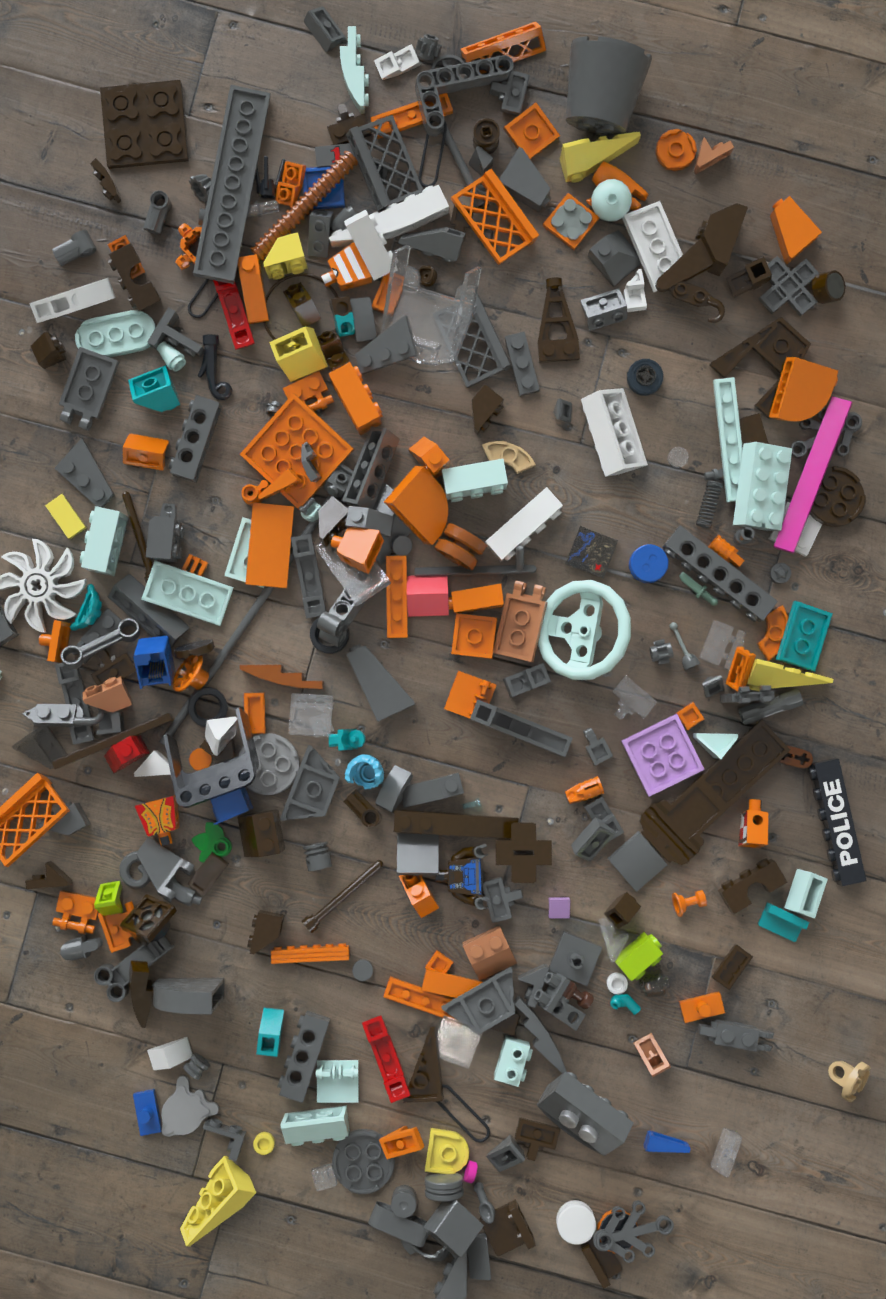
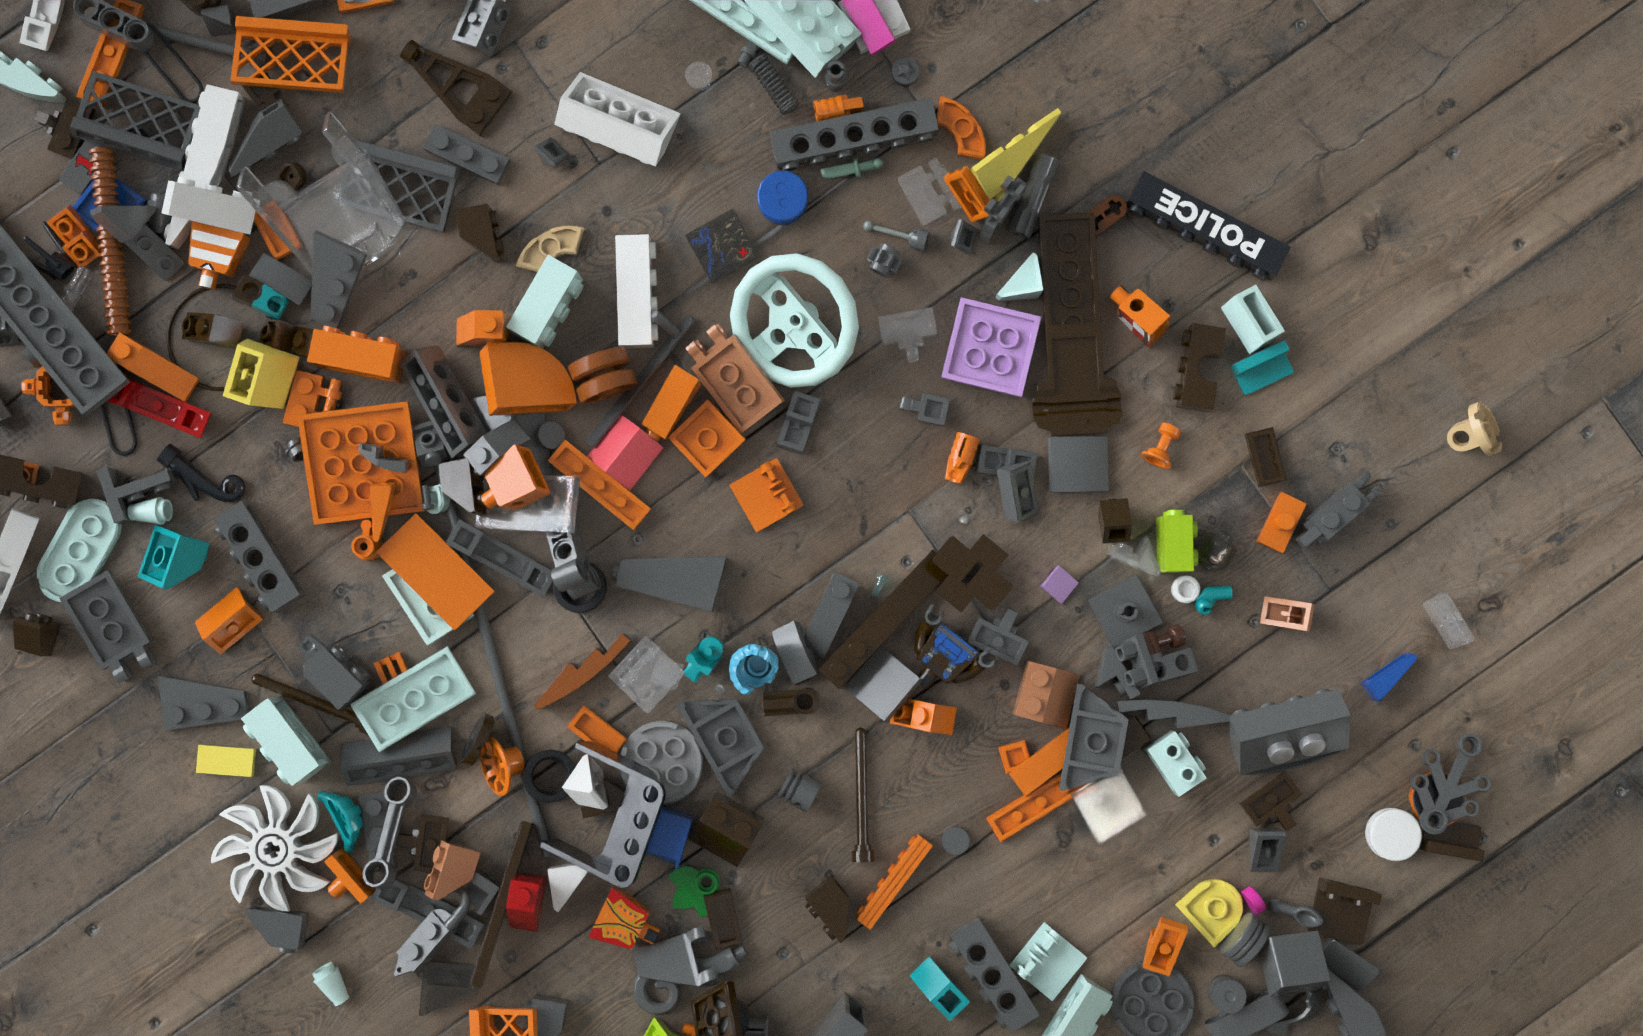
camera: 50 degrees left, 0 degrees up
(154, 661) = (454, 791): blue piece -> none
(200, 759) = (597, 829): orange sticker -> none
(285, 257) = (148, 305): light yellow slope -> none
(321, 203) = (123, 221): none -> dark grey slope
(386, 1058) = (1066, 891): red slope -> none
(427, 1078) = (1122, 867): dark brown wing -> none
(463, 1102) = (1185, 872): black piece -> none
(520, 728) = (841, 469): dark grey arch -> none
(651, 374) = (581, 31): black wheel -> none
(690, 716) = (974, 286): orange tile -> none
(804, 636) = (990, 101): teal tile -> none

